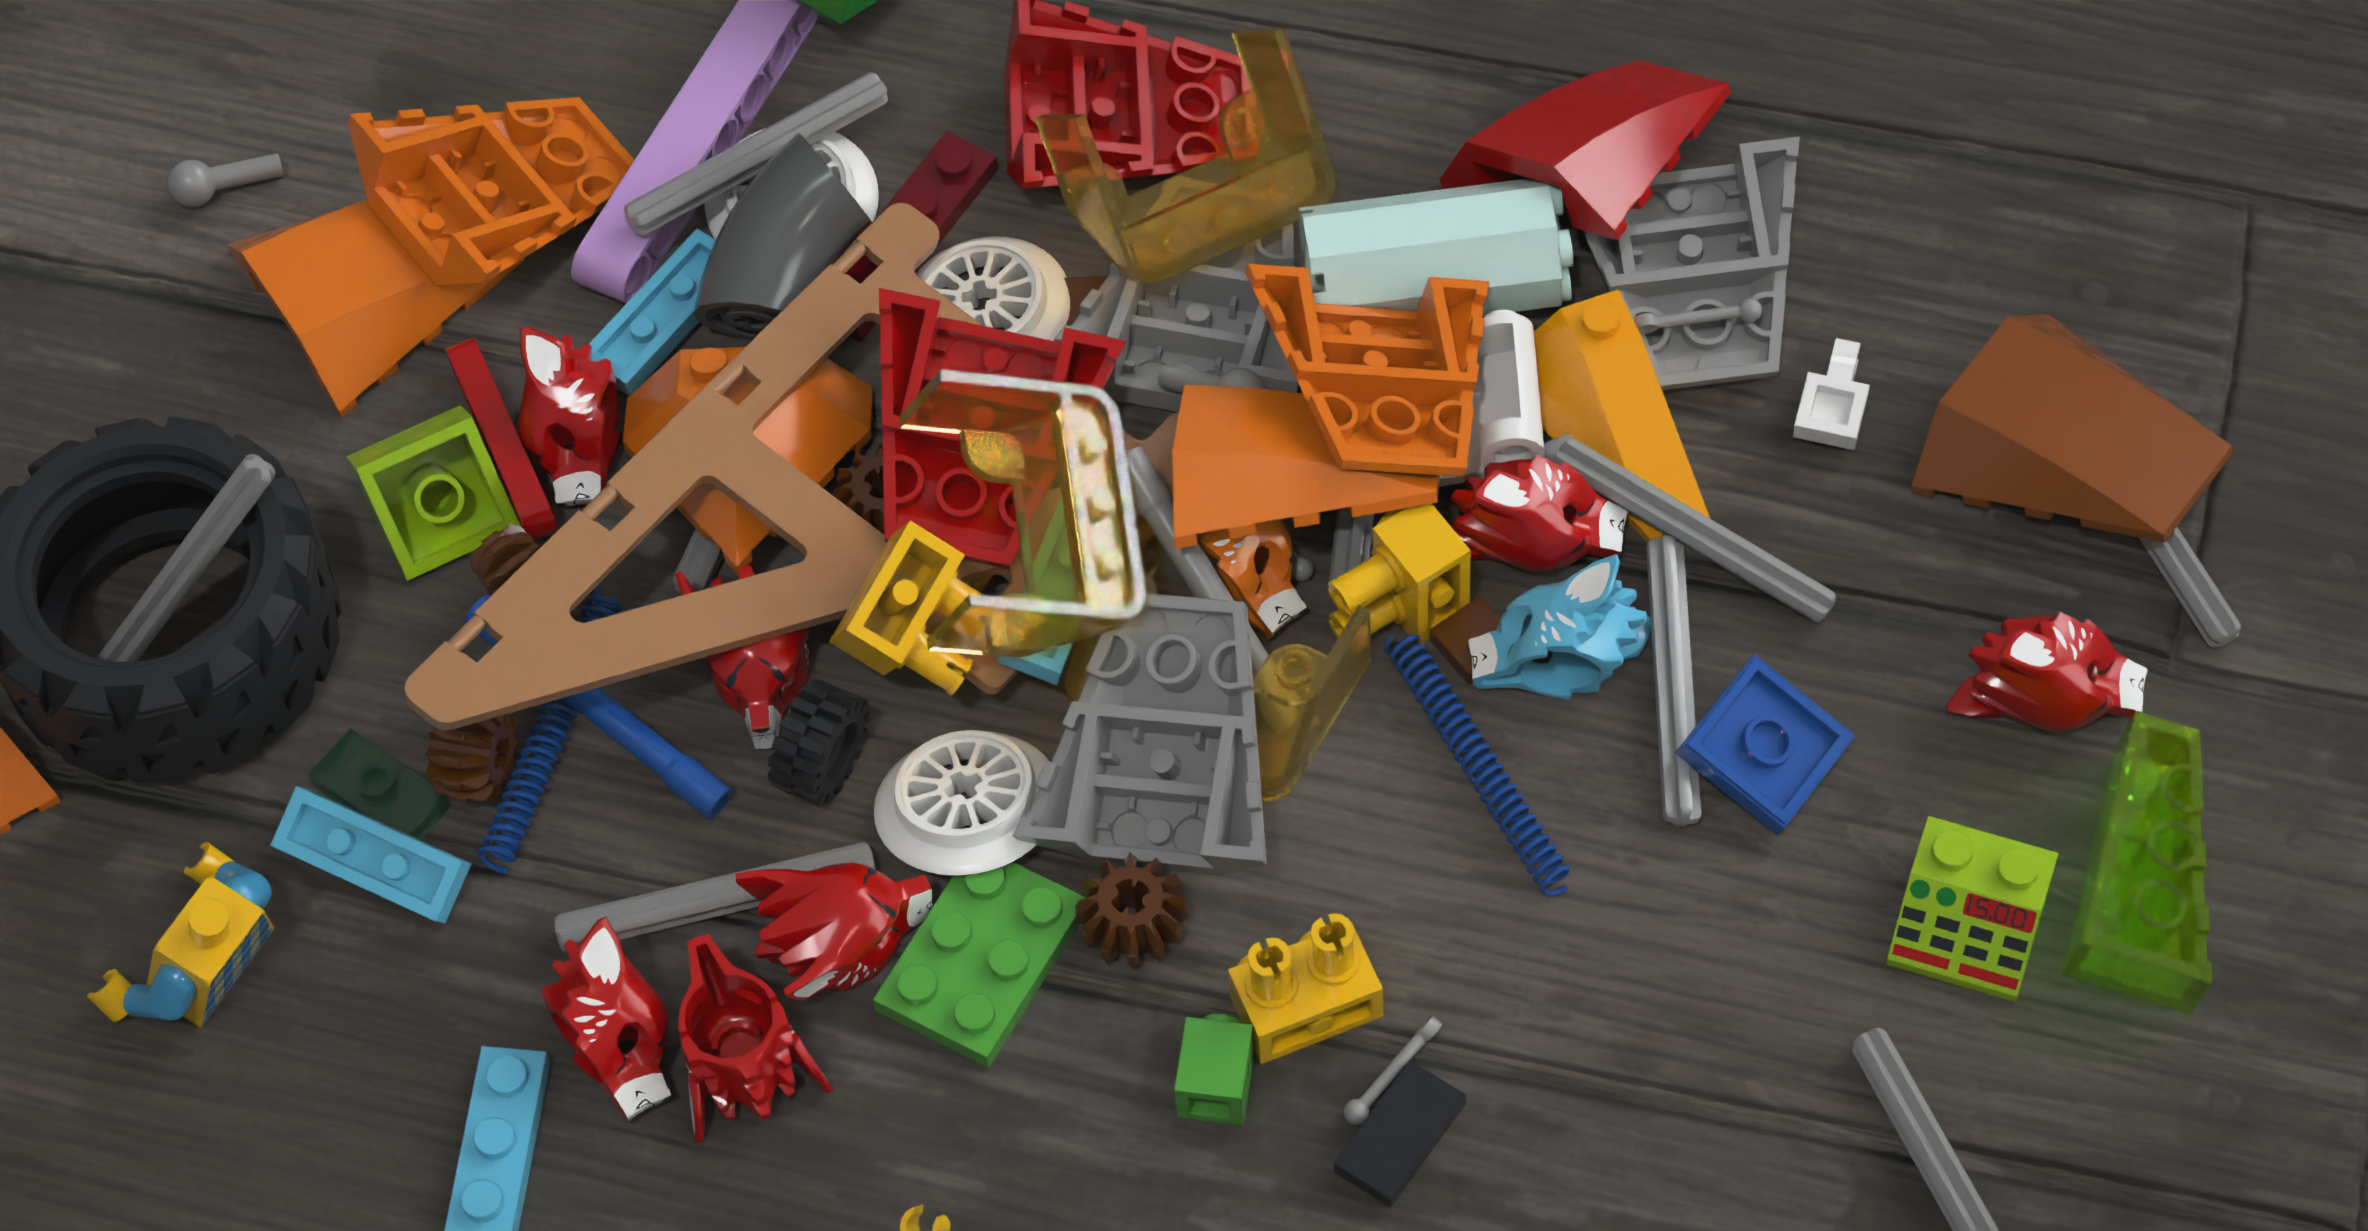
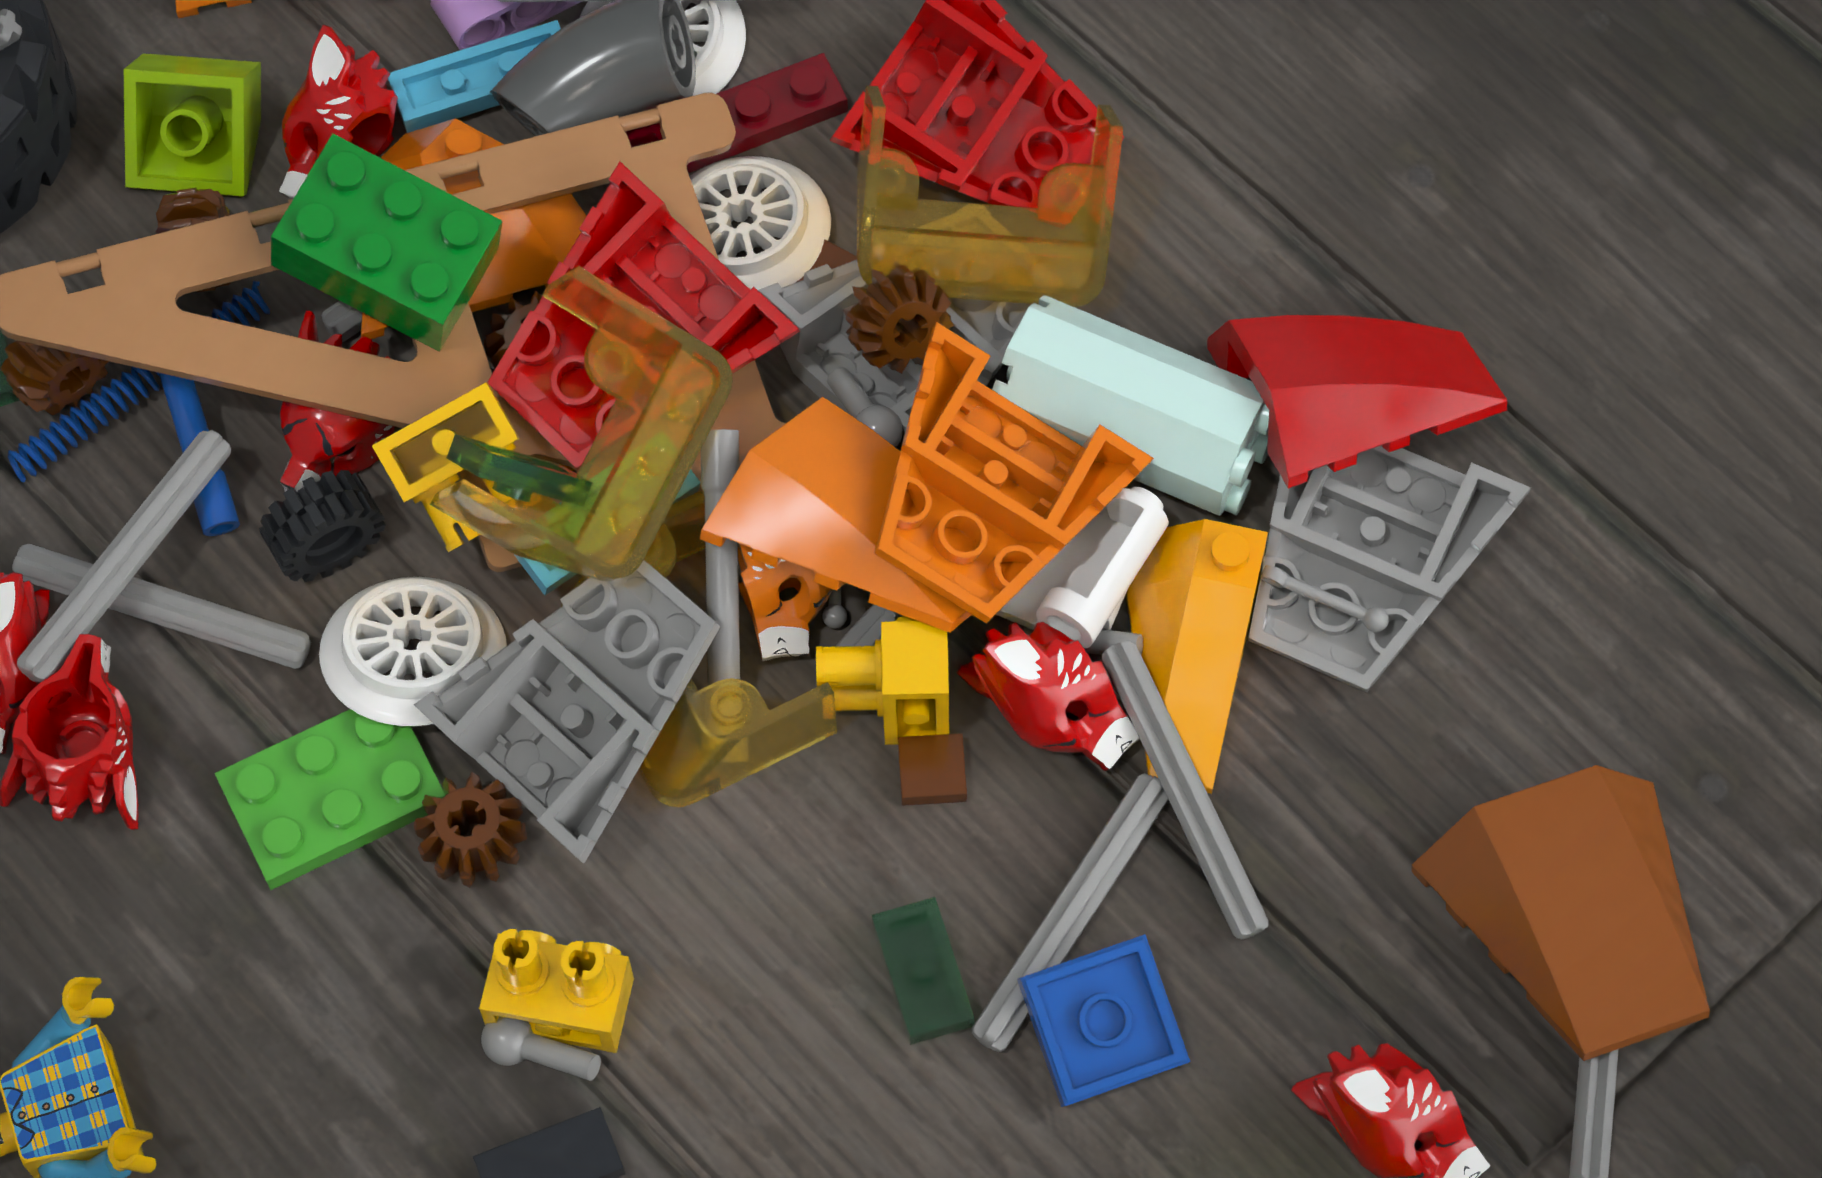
camera: 30 degrees right, 5 degrees up
(501, 439) = (283, 75): red beam -> none
(669, 864) = (124, 556): none -> light grey axle
(725, 465) = (385, 242): none -> green brick
(832, 921) = (220, 687): red piece -> none
(987, 578) = (518, 473): none -> clear green plate
(1193, 292) = (896, 316): none -> reddish brown gear
(1214, 1069) = (435, 1010): bright green brick -> none
(1293, 1057) = (513, 1041): none -> light grey bar
(1357, 1110) = (531, 1121): light grey hinge -> none
(1478, 759) = (868, 773): blue piece -> none
(1579, 620) = (998, 815): medium azure piece -> none
(1590, 795) = (922, 970): none -> clear green plate
(1833, 403) = (1396, 748): white plate -> none

